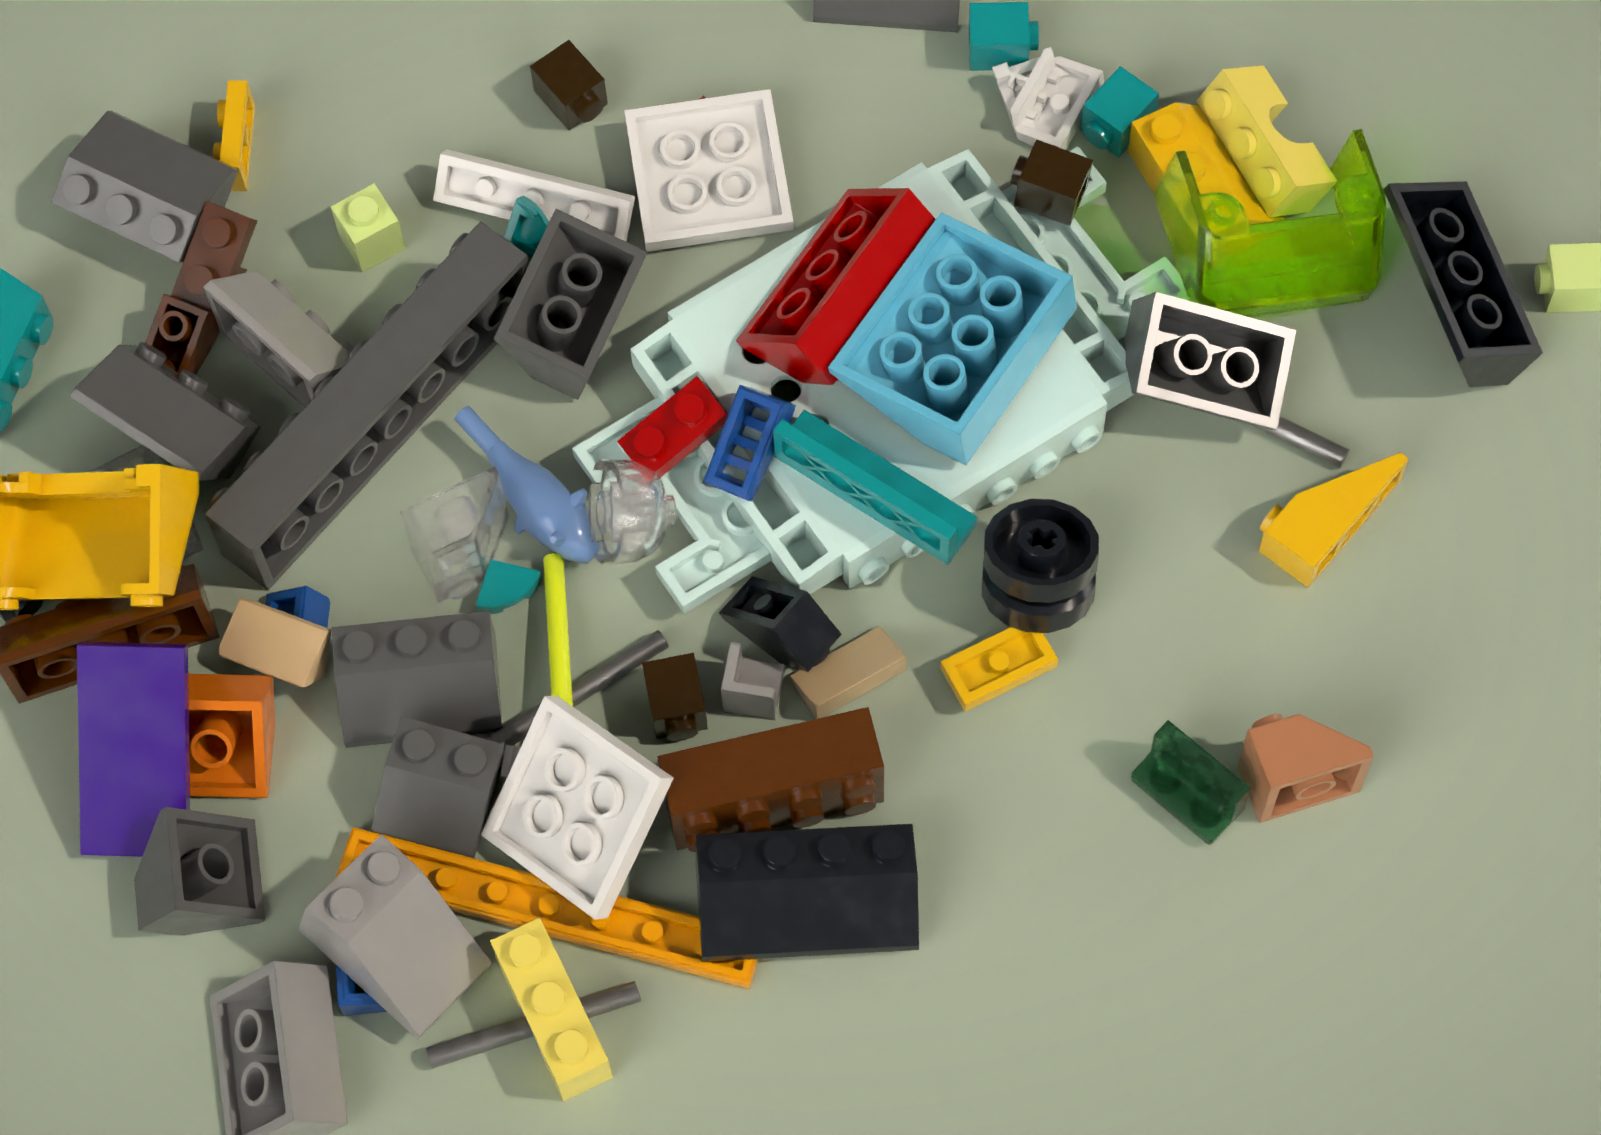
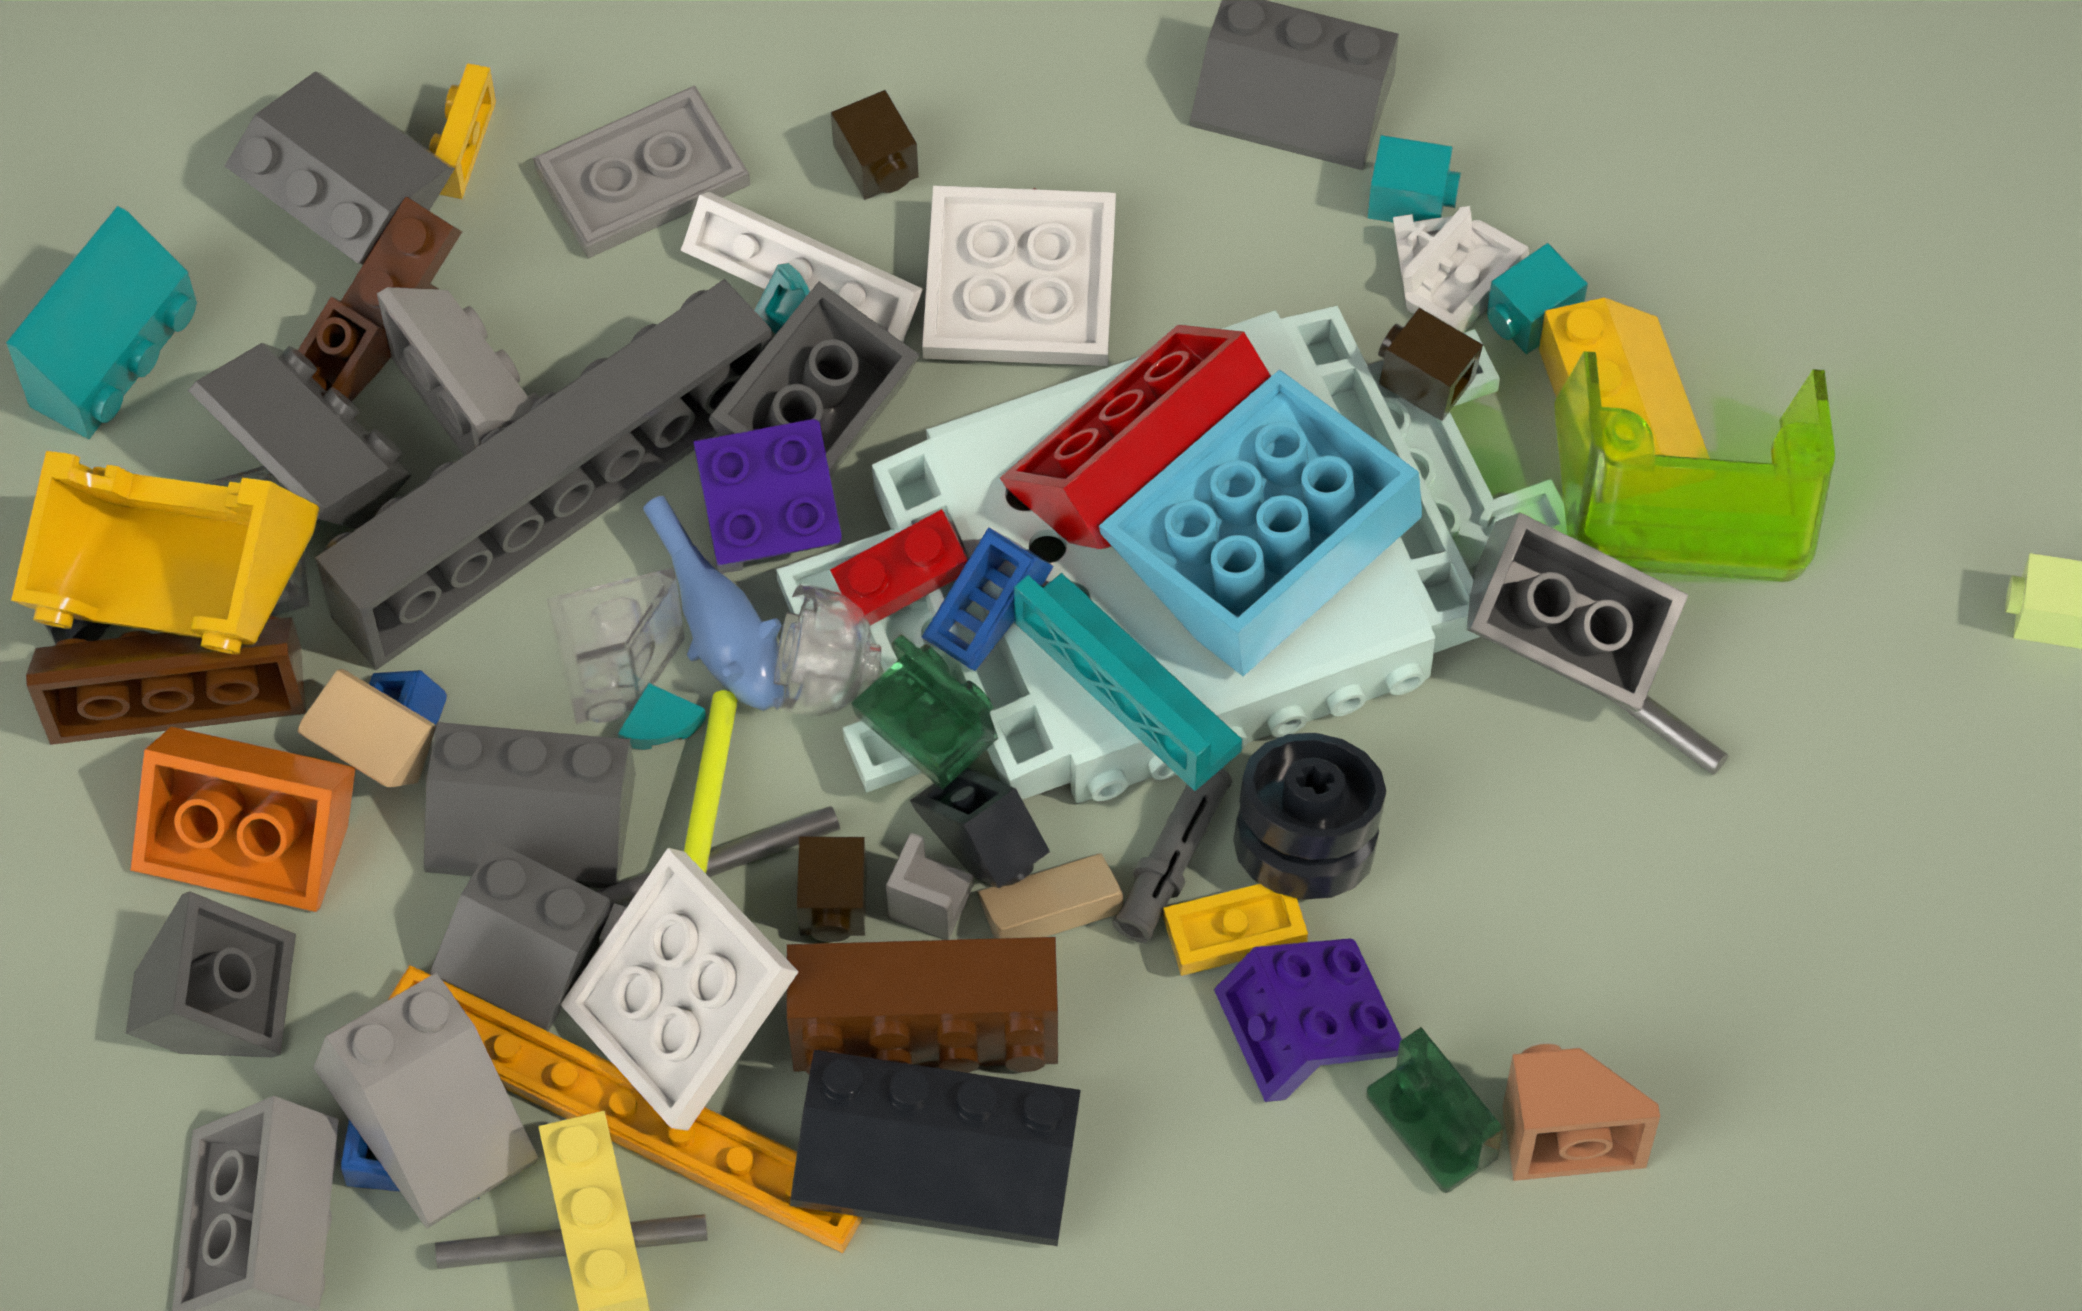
camera: 10 degrees right, 5 degrees down
(130, 742) = (166, 807): dark purple tile -> none
(368, 227) = (594, 266): yellowish green brick -> none
(387, 137) = (640, 171): none -> light grey tile
(552, 389) = (767, 493): none -> dark purple bracket
(722, 543) = (928, 713): none -> clear green bracket
(931, 632) = (1162, 872): none -> dark grey pin
(1069, 723) = (1305, 1010): none -> dark purple bracket
(1281, 173) = (1716, 406): light yellow arch -> none
(1325, 517) = (1680, 828): yellow slope -> none
(1465, 280) = (1912, 576): black slope -> none

